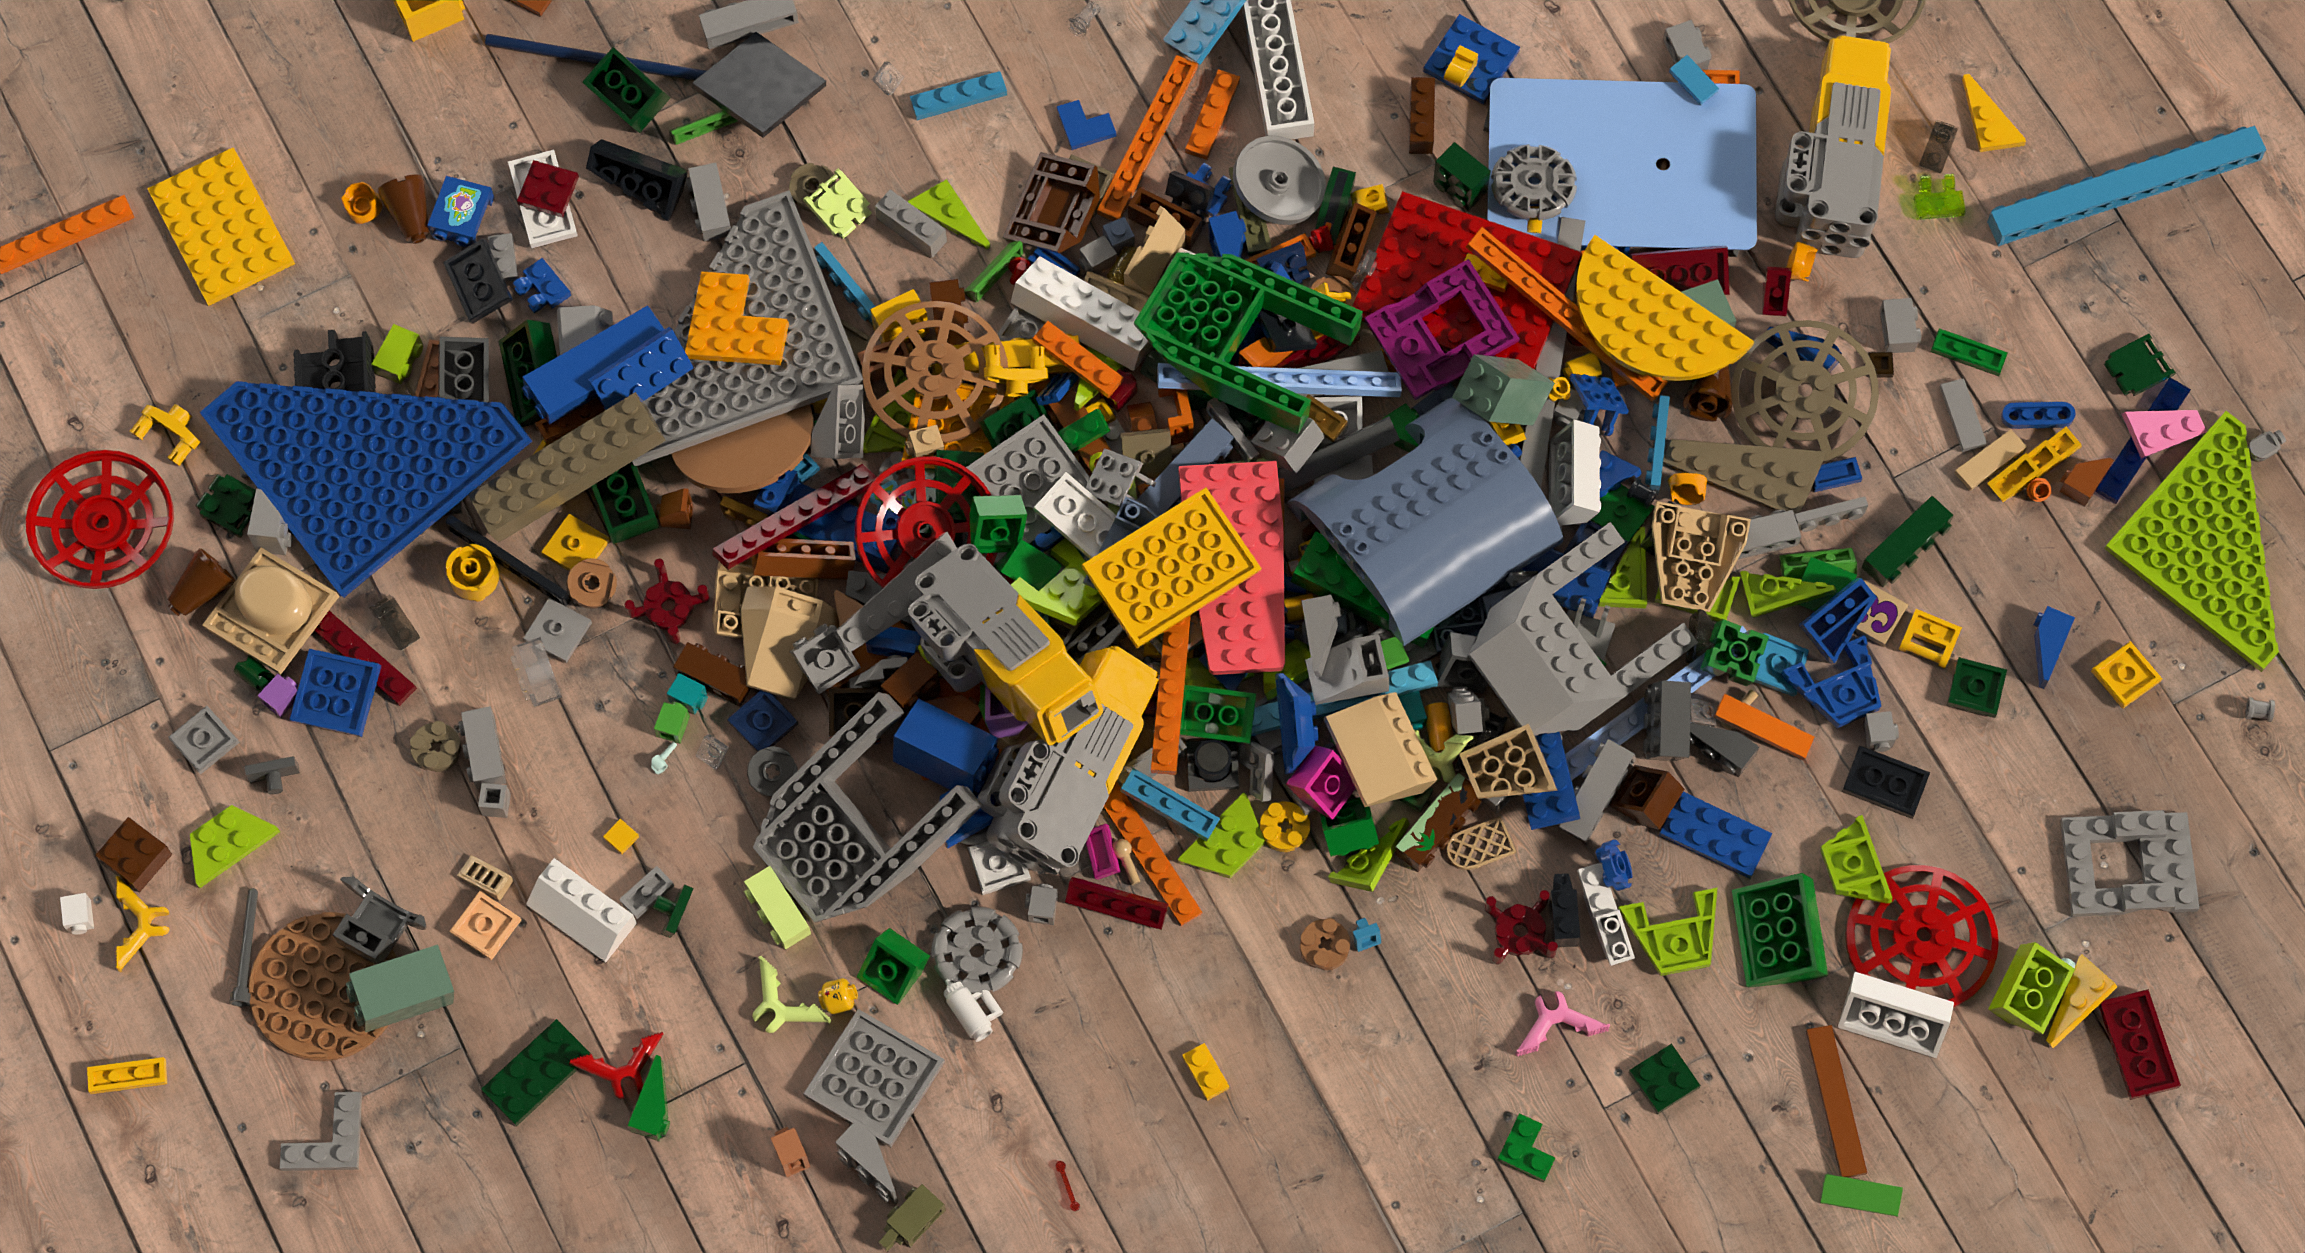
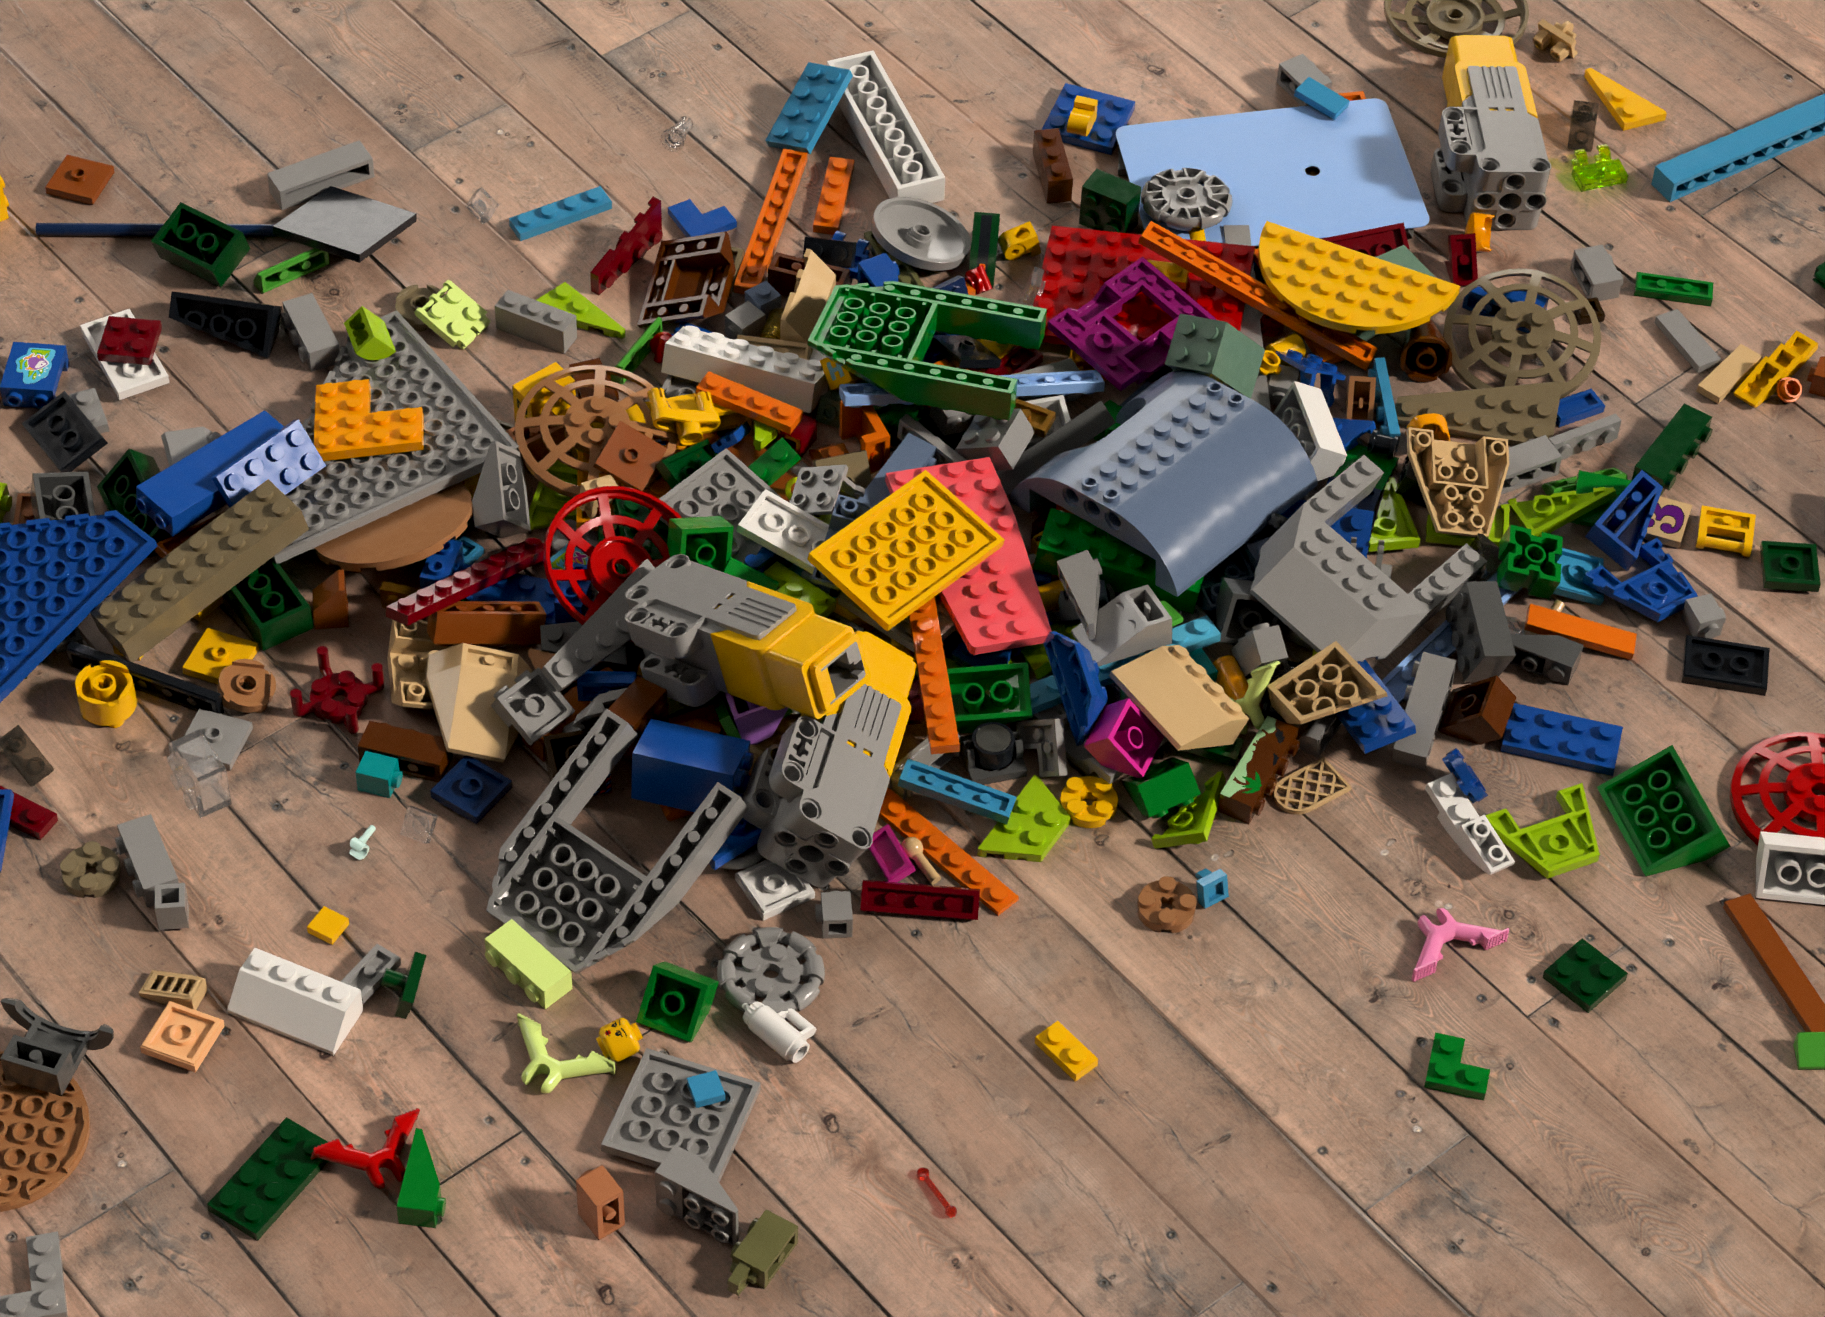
camera: 15 degrees left, 20 degrees down
(400, 988) = (92, 1105): sand green brick -> none
(547, 284) = (141, 428): blue plate -> none
(672, 722) = (366, 804): bright green brick -> none
(758, 222) = (369, 335): none -> lime brick
(764, 759) = (480, 821): dark grey plate -> none
(840, 277) = (478, 382): dark azure plate -> none
(897, 1059) = (706, 1089): none -> dark azure tile
(957, 409) = (630, 457): none -> dark orange plate
(1009, 154) = (629, 248): none -> dark red wing
(1351, 241) = (1011, 270): reddish brown brick -> none
(1524, 916) = (1383, 846): dark red plate -> none
(1564, 912) = (1424, 833): black hinge -> none
(1635, 441) = (1360, 398): none -> medium nougat slope
(1855, 865) = (1723, 741): lime wing -> none
(1950, 43) = (1559, 36): none -> tan hips
(2046, 410) = (1763, 328): blue plate -> none

